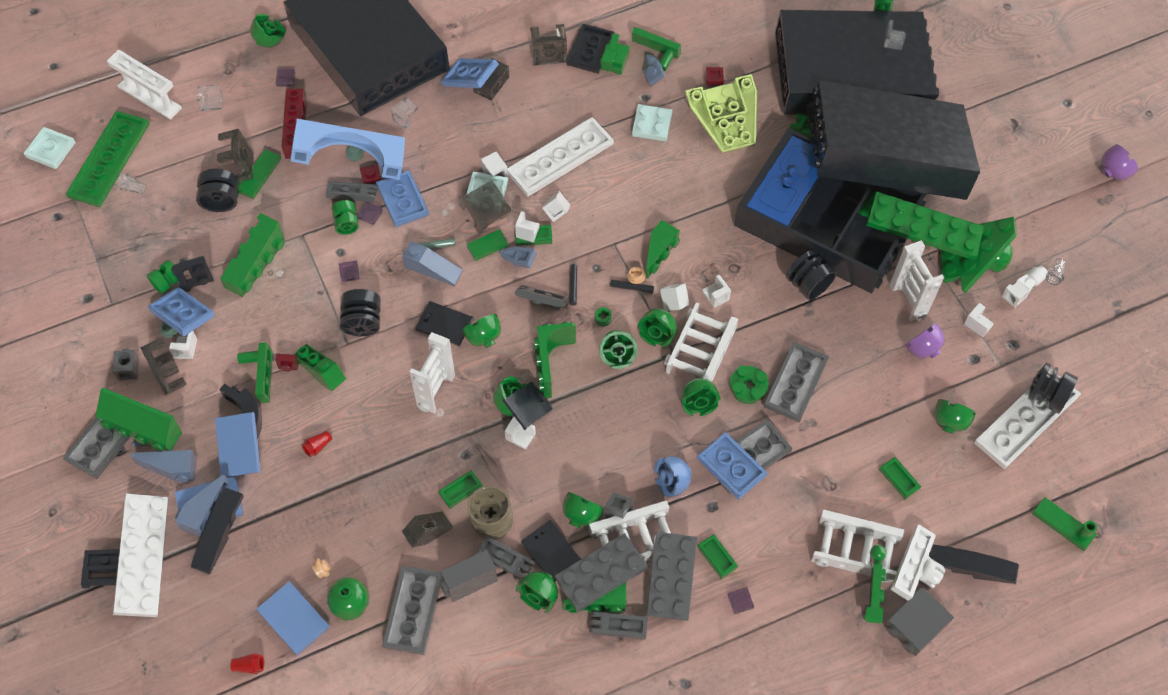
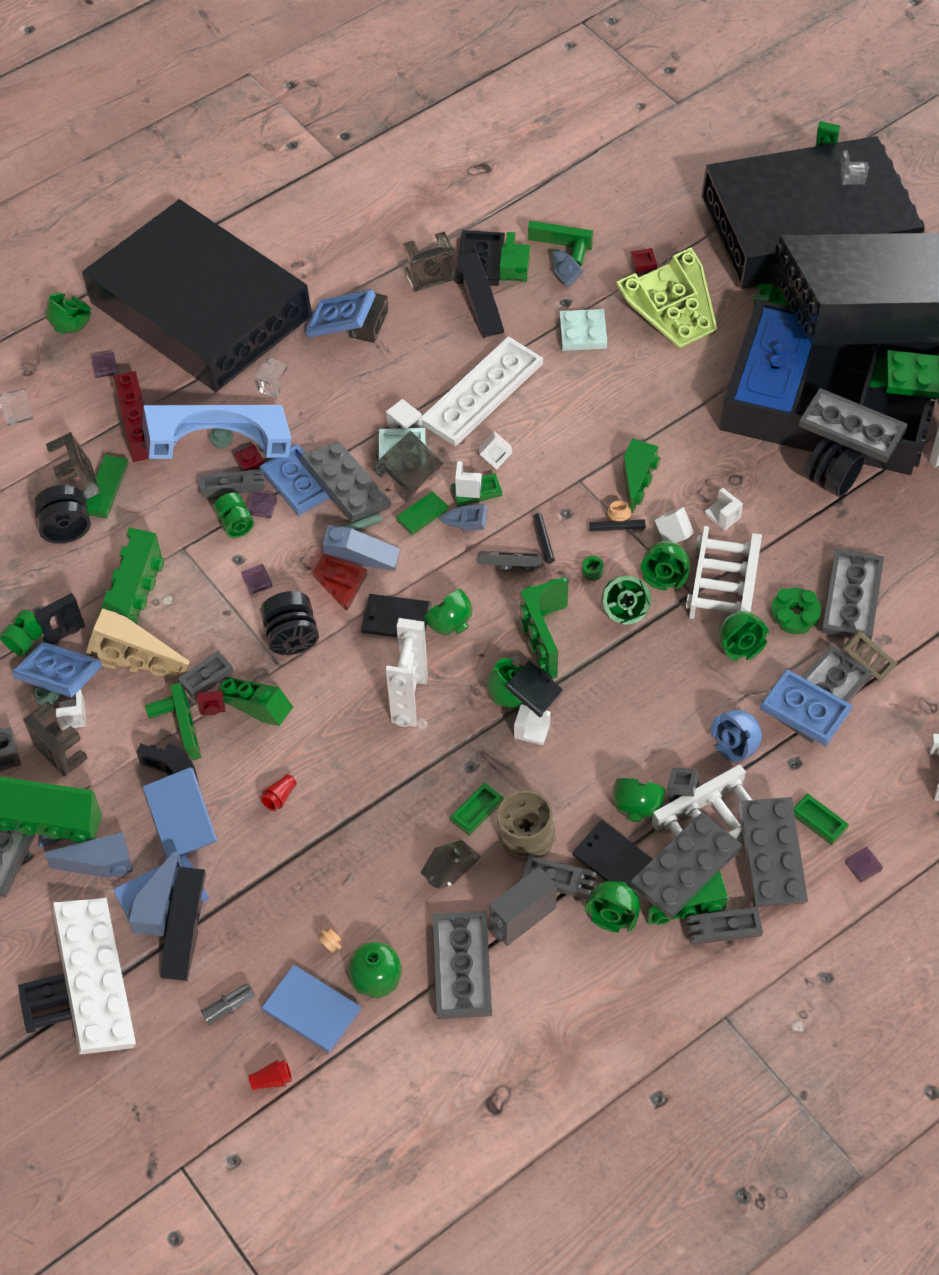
camera: 10 degrees left, 5 degrees down
(231, 300) = (123, 643): none -> tan wedge
(232, 600) = (227, 1003): none -> dark grey axle
(289, 339) = (205, 675): none -> dark grey plate
(410, 284) = (340, 578): none -> clear red wing
(436, 208) = (345, 481): none -> dark grey piece
(580, 79) = (480, 294): none -> black slope
(783, 431) = (867, 642): none -> dark tan slope
(831, 247) = (853, 425): none -> dark grey piece

